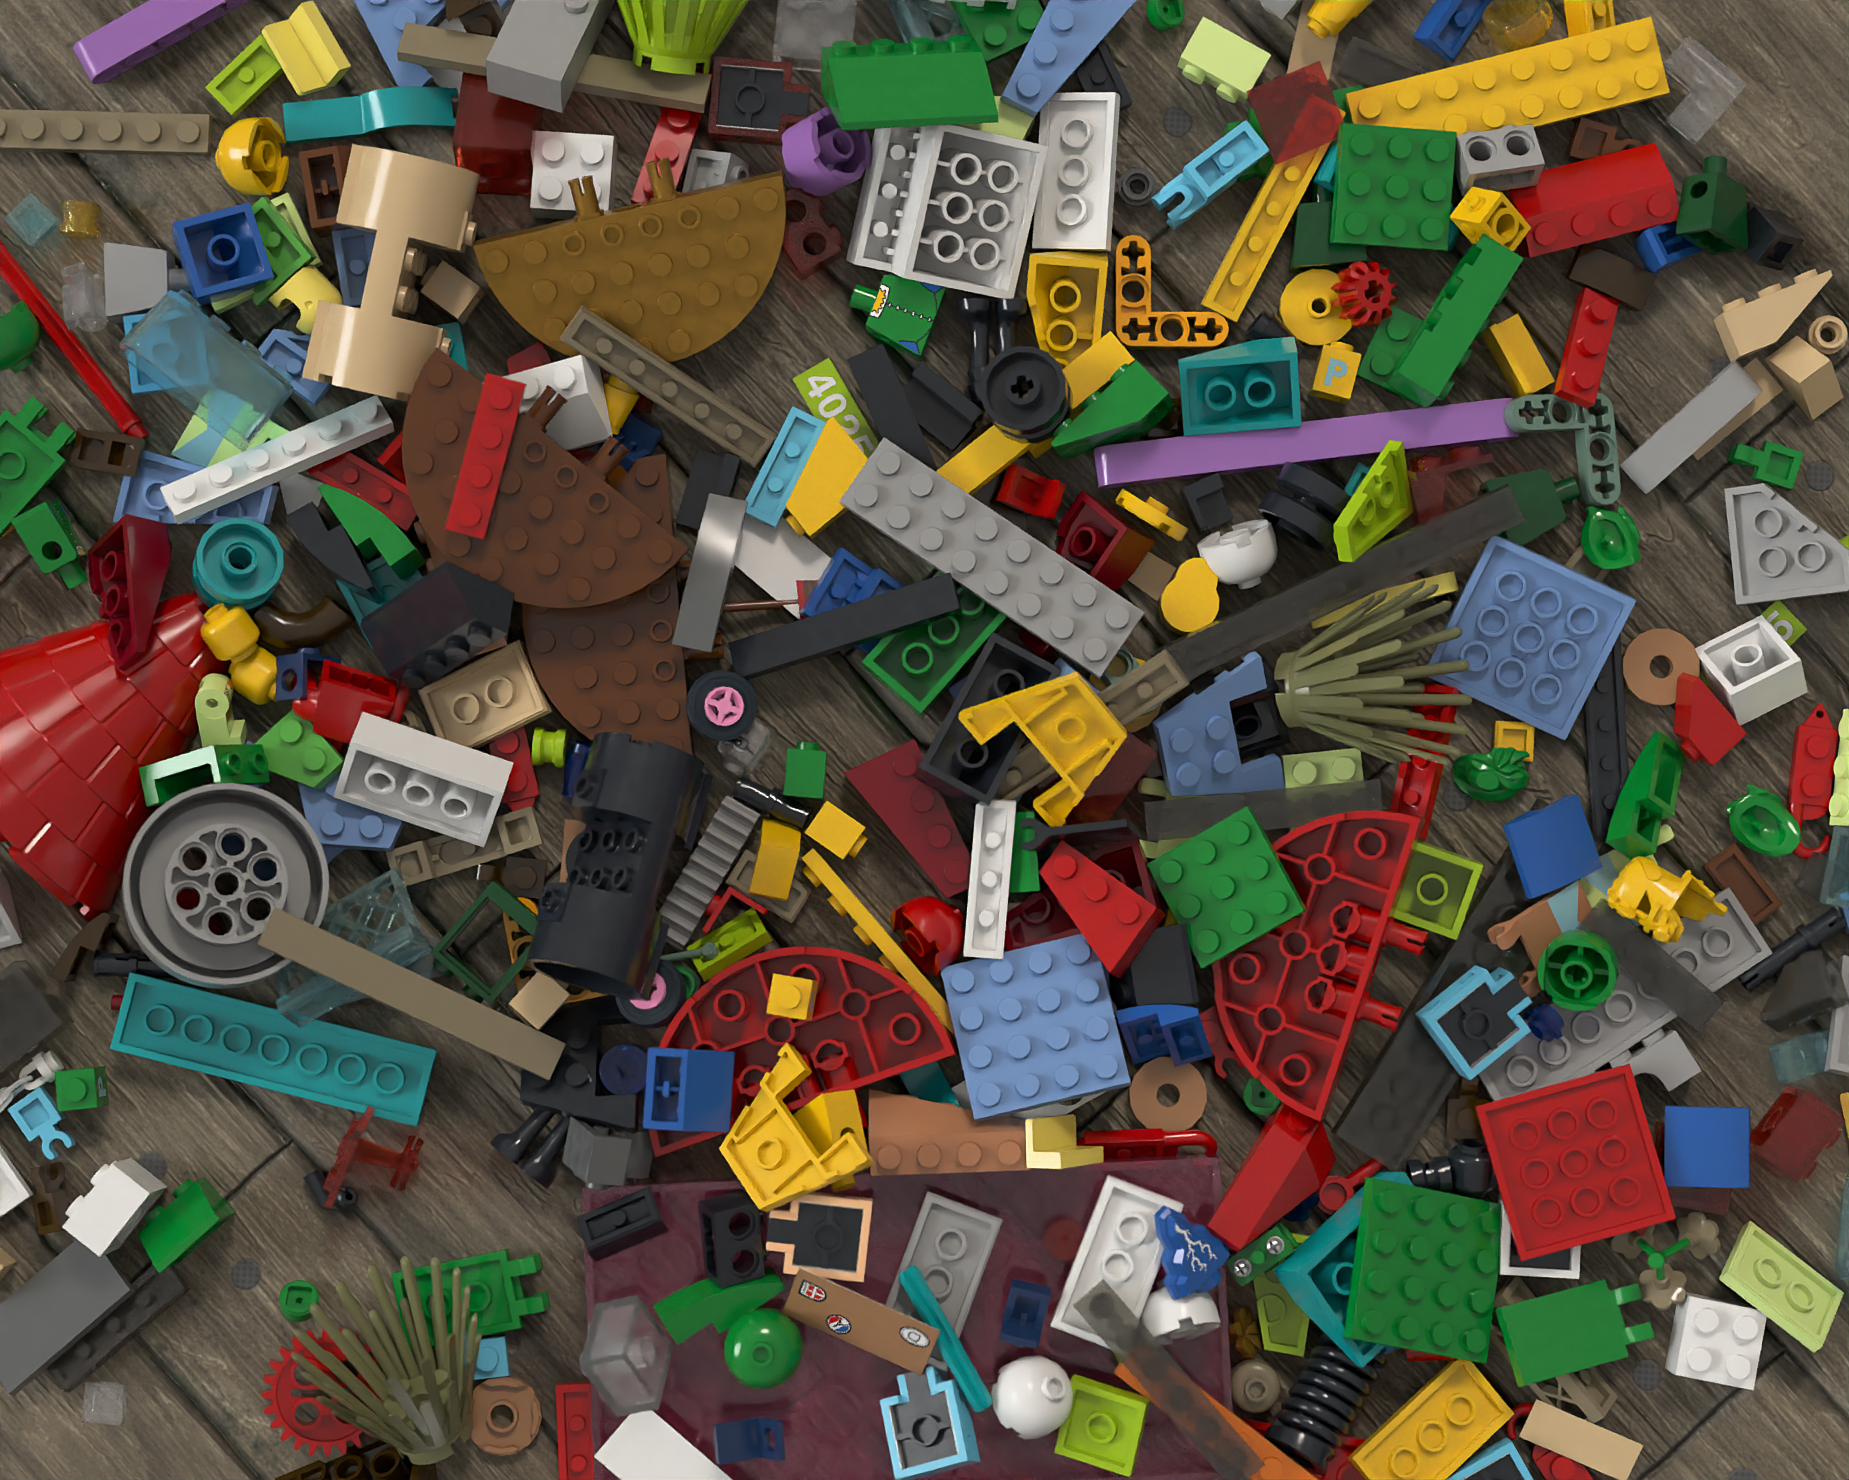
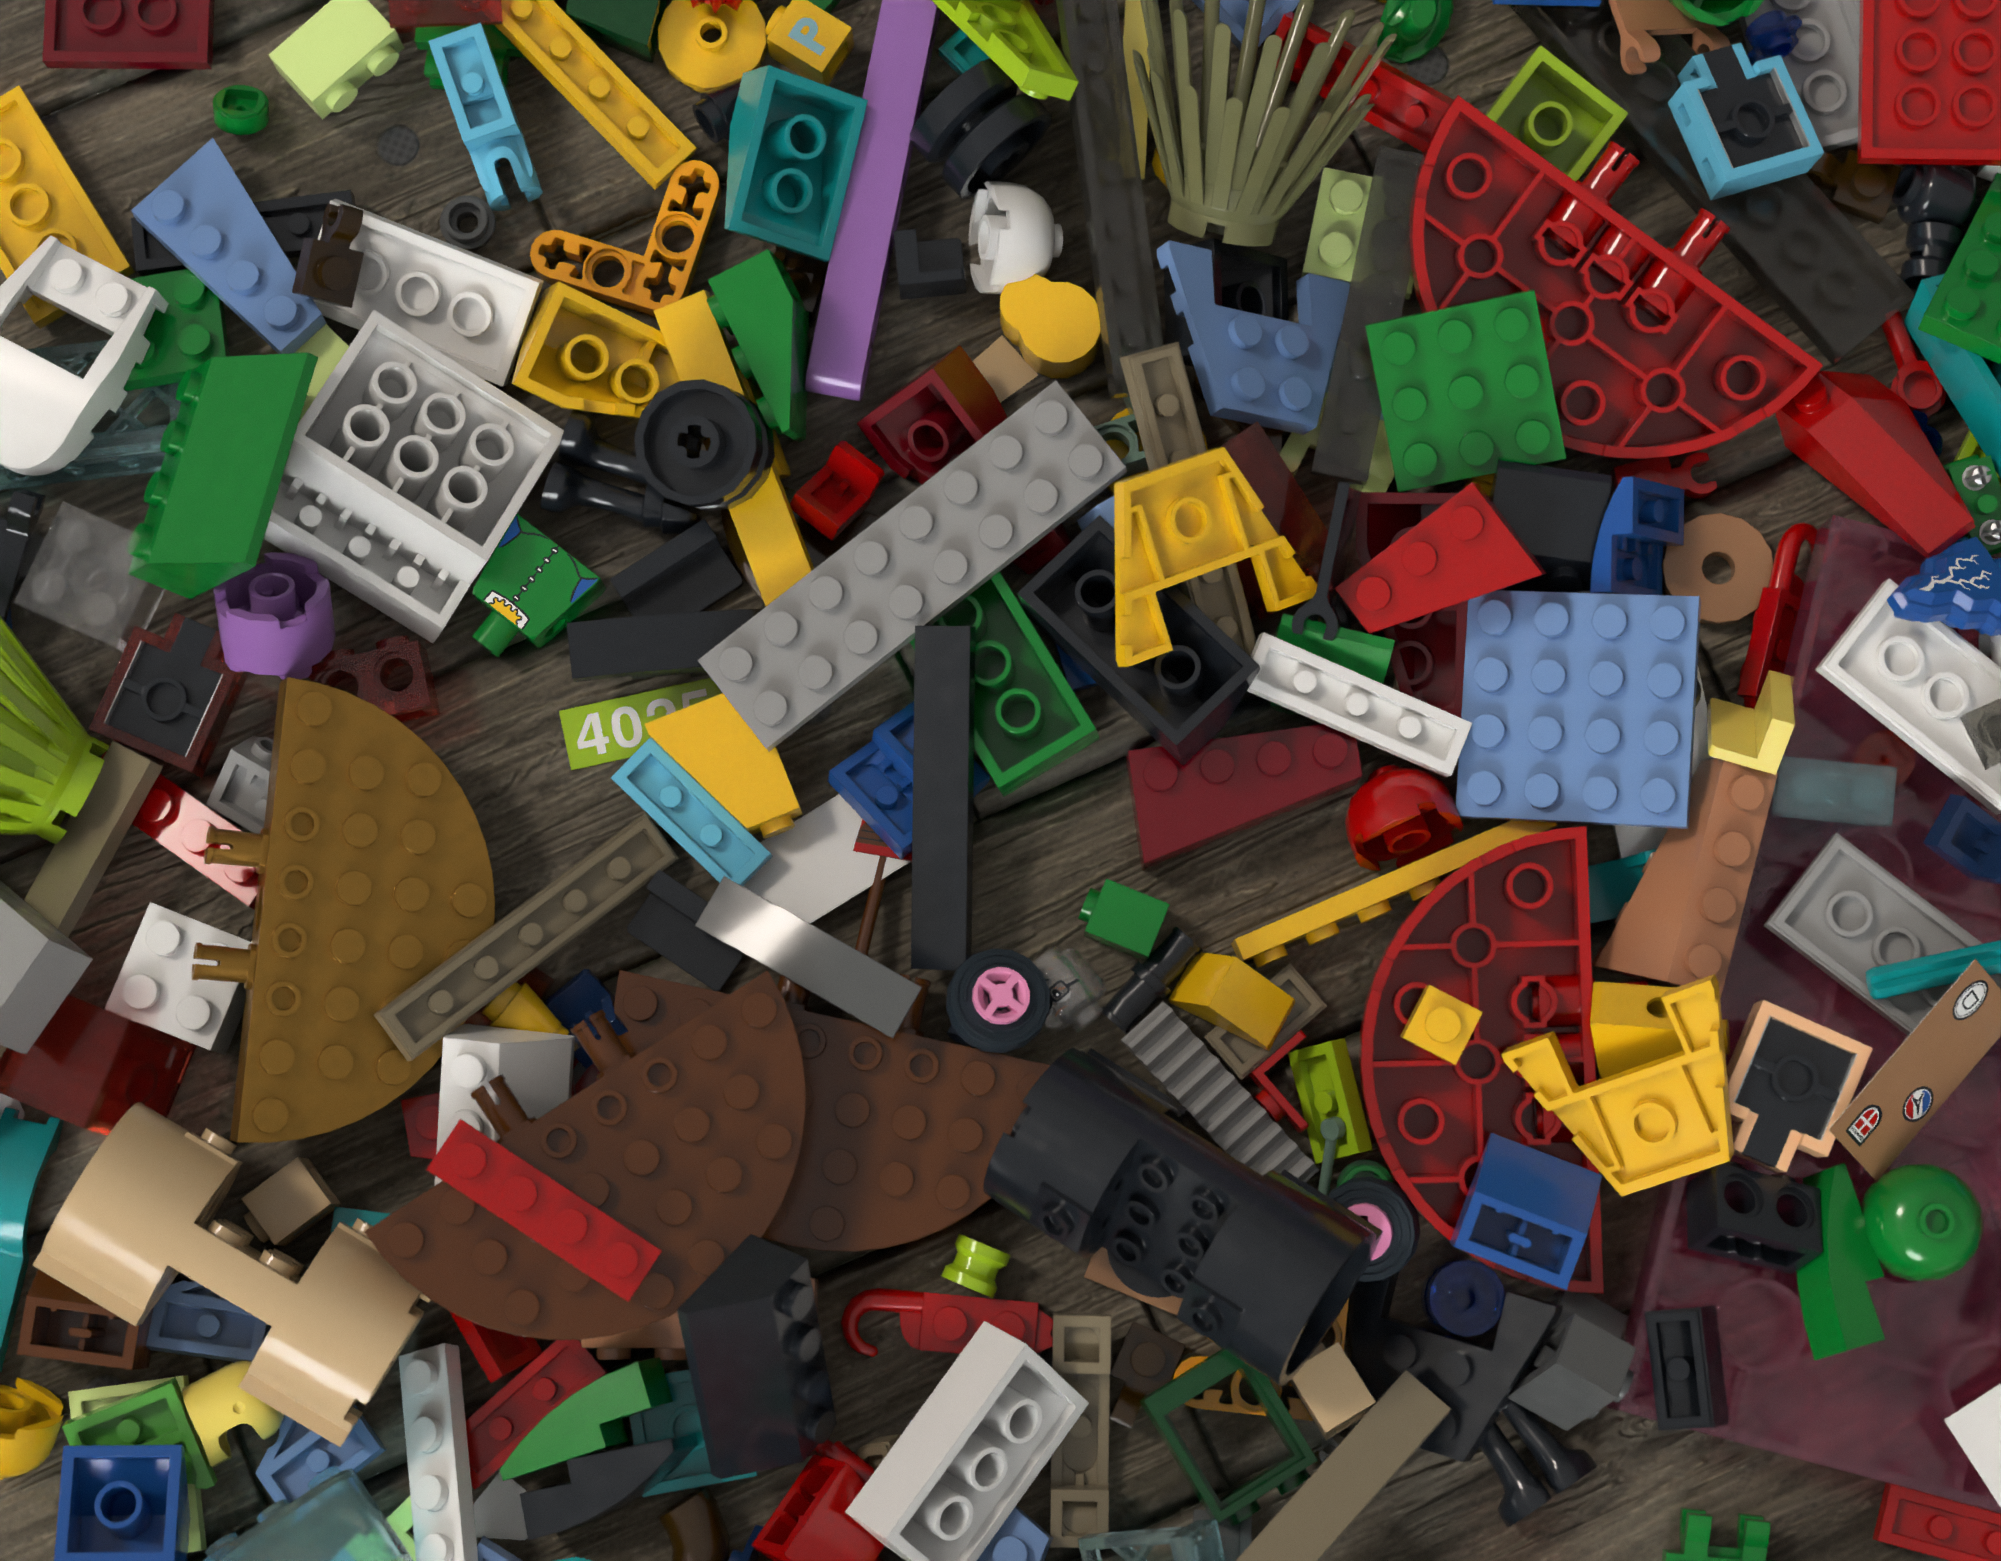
camera: 70 degrees left, 5 degrees down
(486, 698) = (879, 1333): tan tile -> none
(574, 763) = (1017, 1237): clear blue cone -> none
(626, 1356) = (1878, 1418): clear brick -> none
(837, 831) = (1219, 902): yellow brick -> none
(1030, 1211) = (1835, 791): none -> clear light blue plate
(1068, 106) = (327, 265): none -> dark brown plate
(1152, 513) = (922, 335): yellow plate -> none
(1259, 1098) = (1757, 446): green tile -> none

